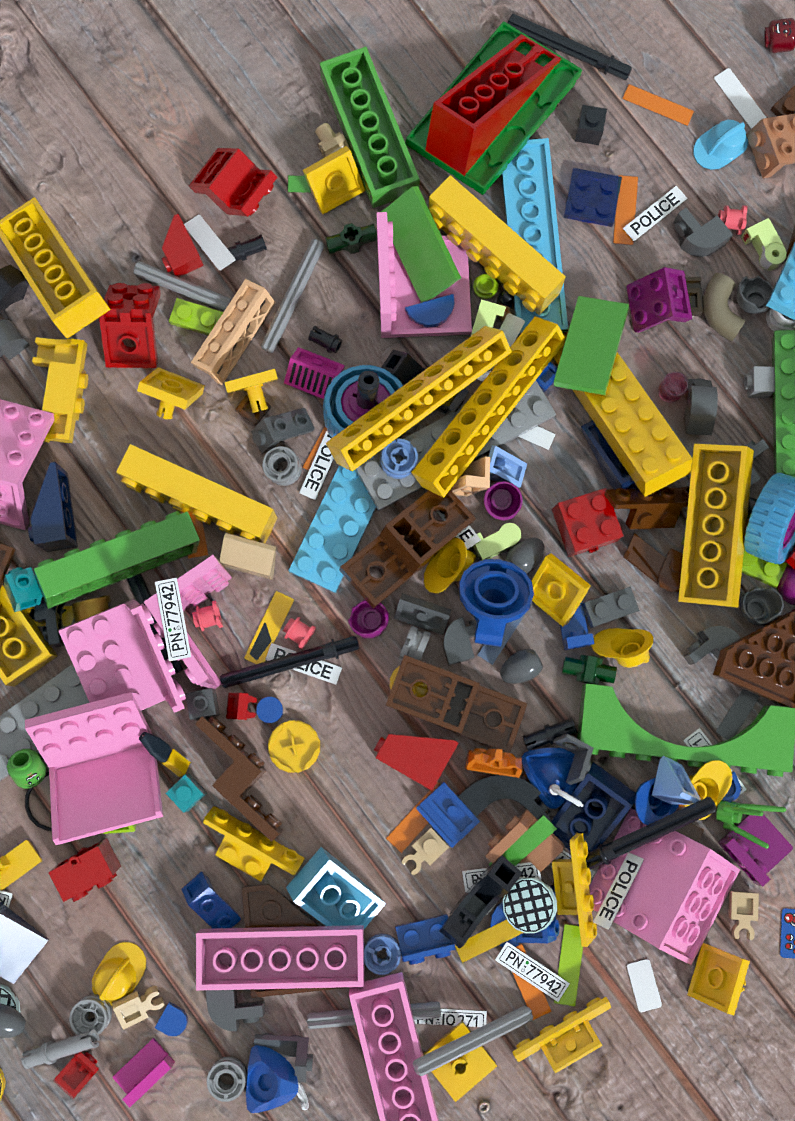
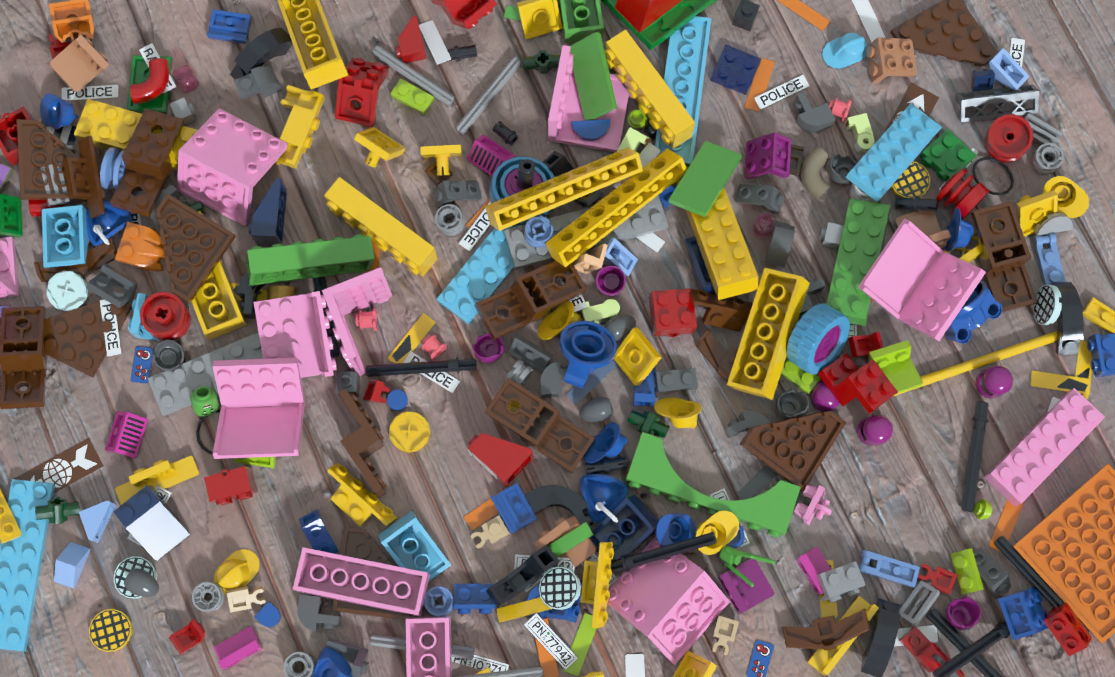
camera: 15 degrees right, 5 degrees down
(22, 588) = (234, 266): teal brick -> none
(50, 1051) = (173, 615): light grey pin -> none
(163, 753) = (309, 412): piece -> none
(173, 619) = (340, 307): white sticker -> none
(186, 793) = (319, 447): teal brick -> none
(232, 329) = (436, 110): light nougat fence -> none
(248, 556) = (408, 280): tan slope -> none
(494, 762) = (557, 474): orange plate -> none
(544, 707) = (606, 443): none -> blue piece
(581, 761) = (626, 481): dark grey bracket -> none
(618, 890) = (628, 593): white sticker -> none
(660, 350) = (760, 195): none -> dark grey bracket
(674, 784) = (690, 520): light blue slope -> none

